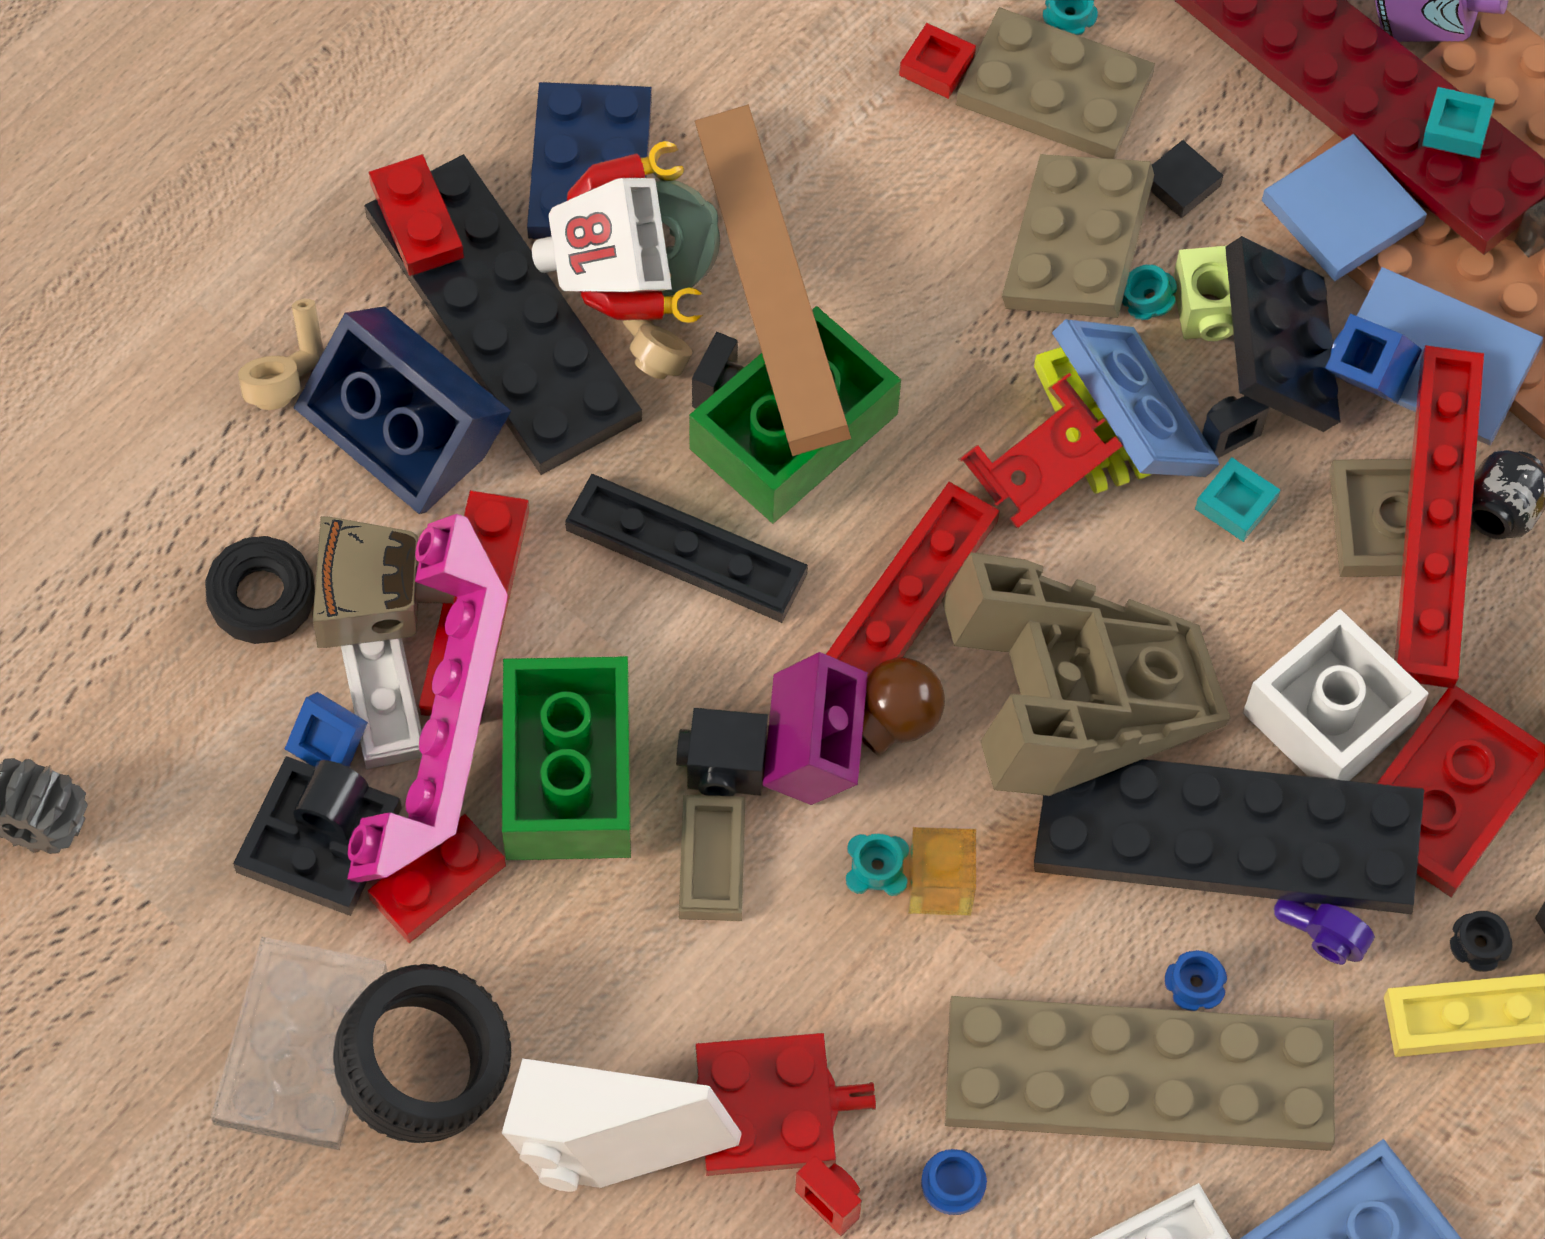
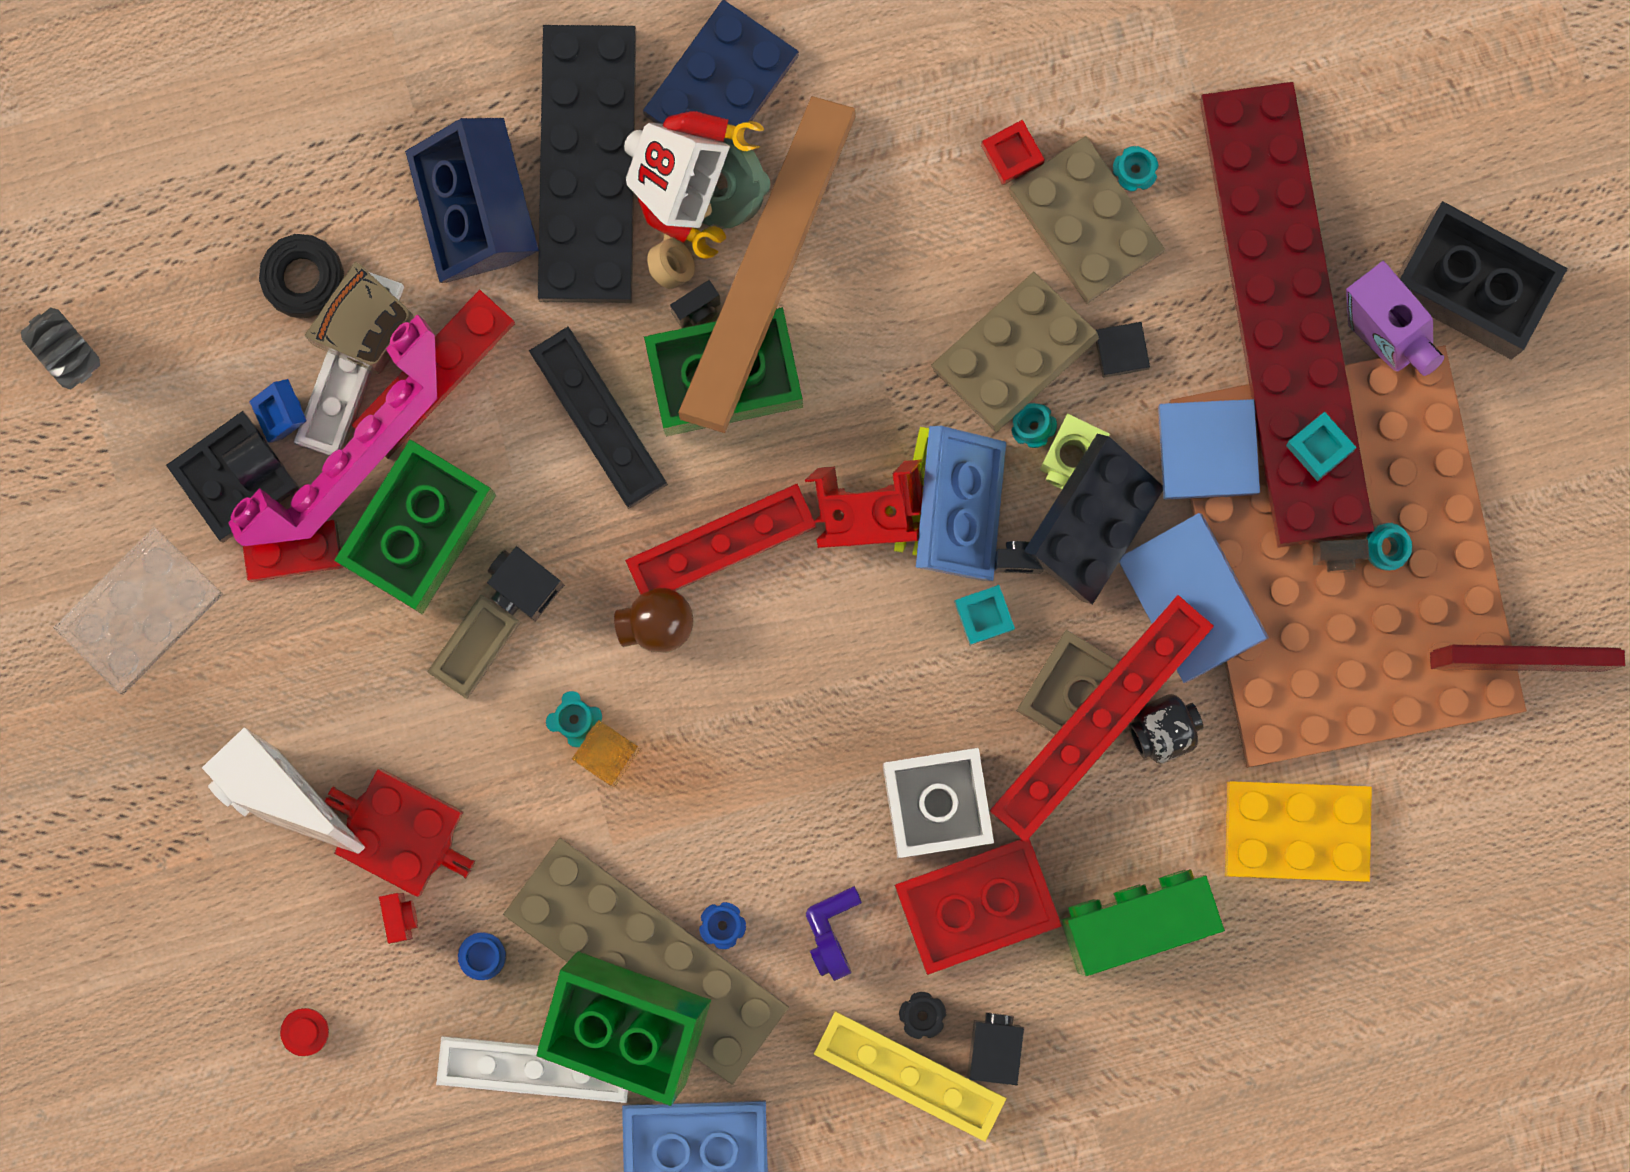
camera: 35 degrees right, 20 degrees up
(274, 380) = (399, 124): tan plate -> none
(416, 215) = (566, 60): red plate -> none
(463, 1005) = (210, 721): black tyre -> none
(815, 729) = (587, 607): magenta brick -> none
(1091, 675) = (801, 686): dark tan wedge -> none
(1179, 1137) = (623, 1028): none -> green brick
(1238, 834) = (810, 843): black plate -> none
(1373, 358) = (1136, 581): blue brick -> none

